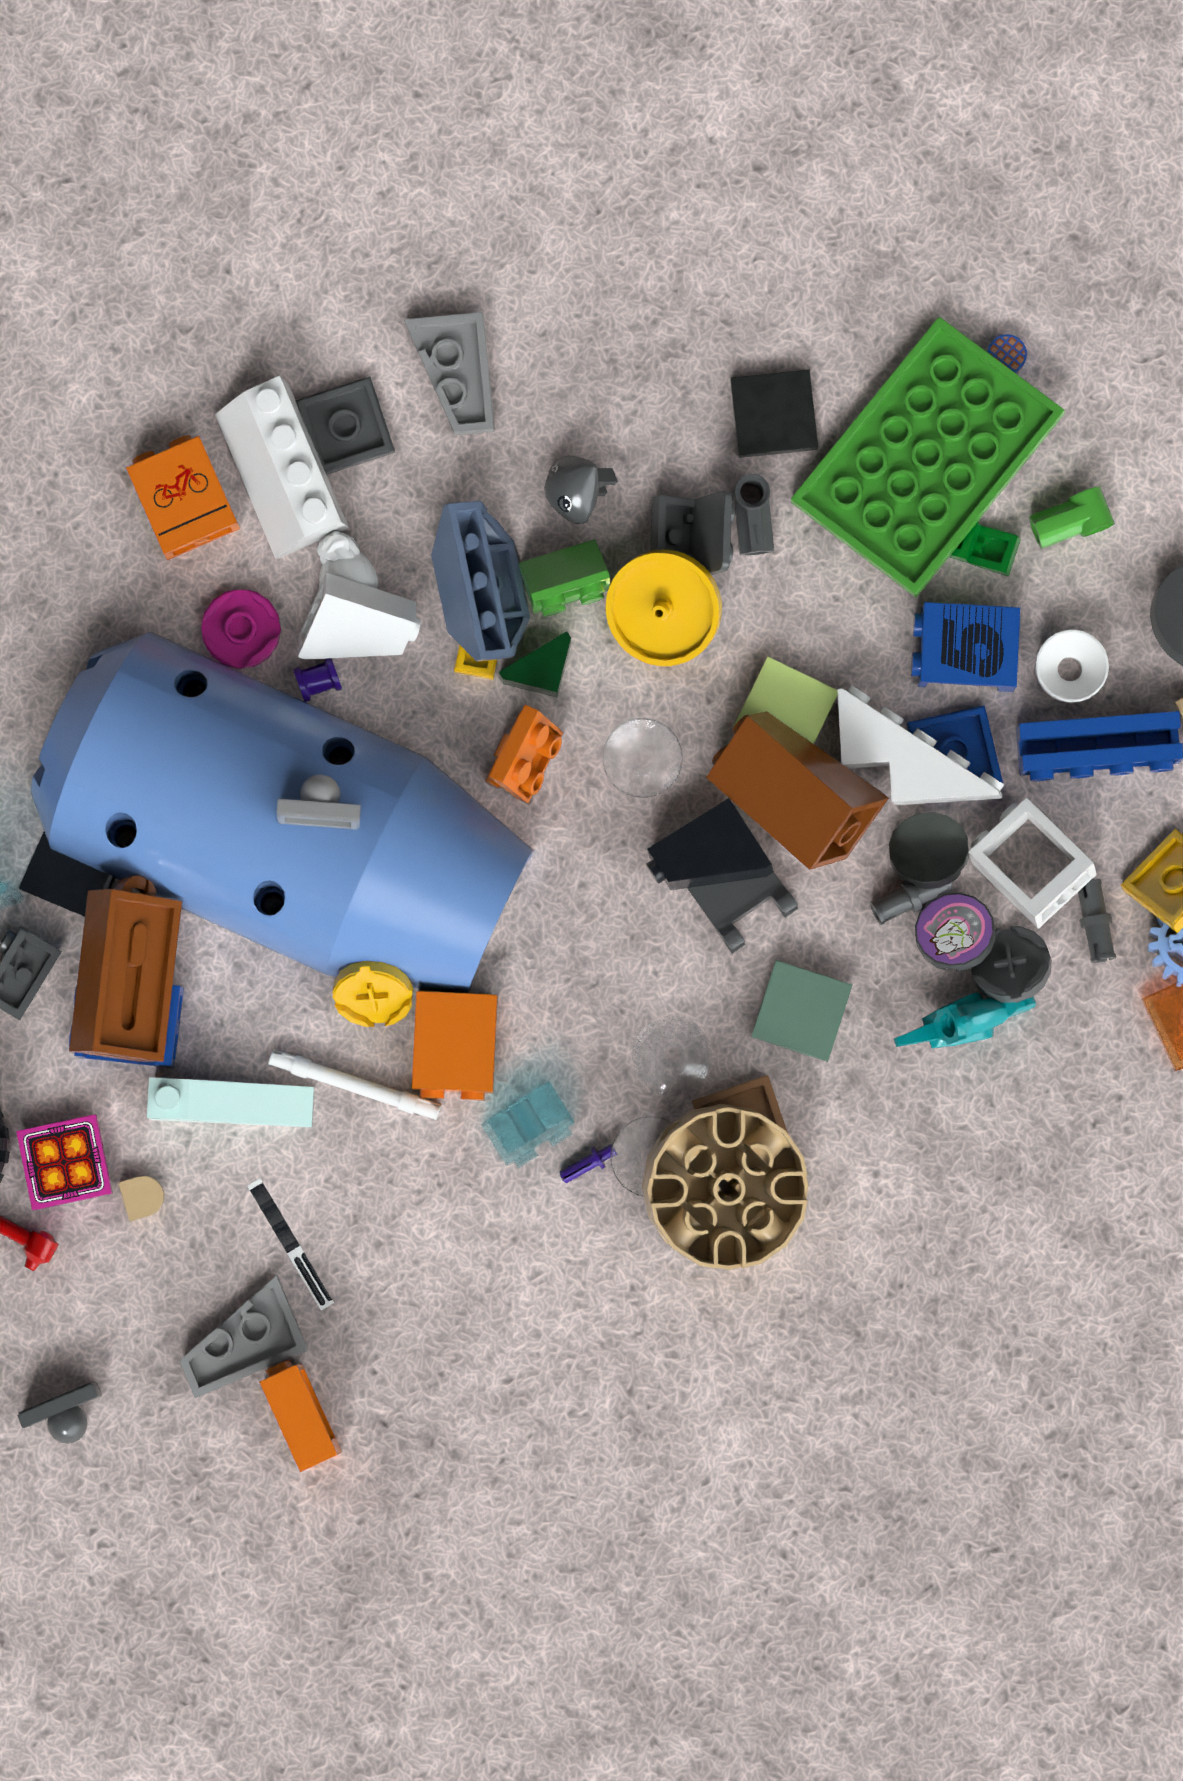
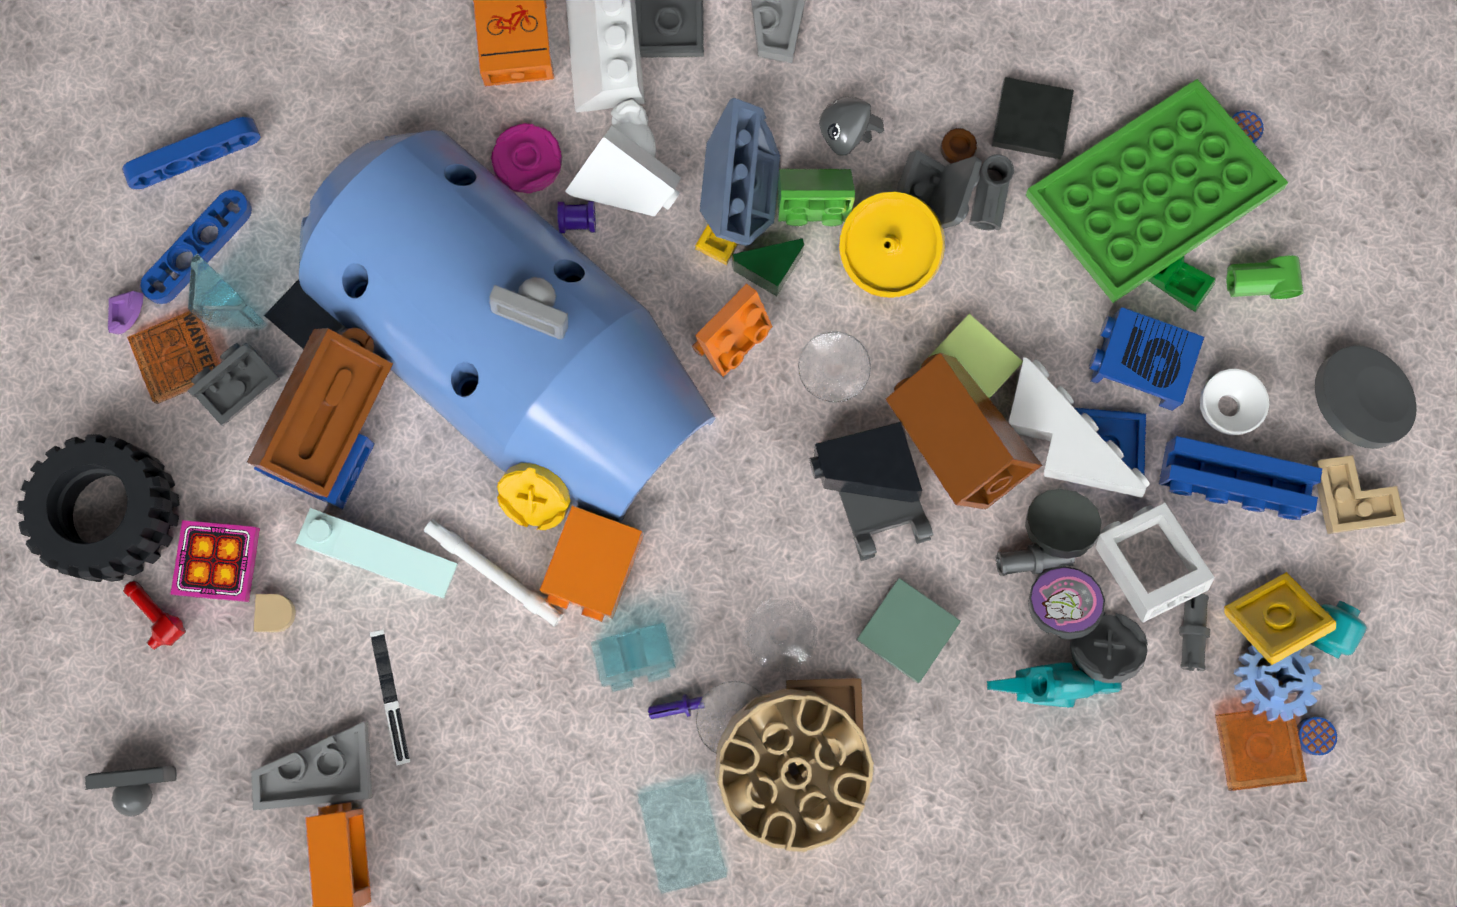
camera: 15 degrees right, 5 degrees down
(634, 1289) = (682, 835): none -> clear light blue piece
(703, 470) = (958, 145): none -> reddish brown tile

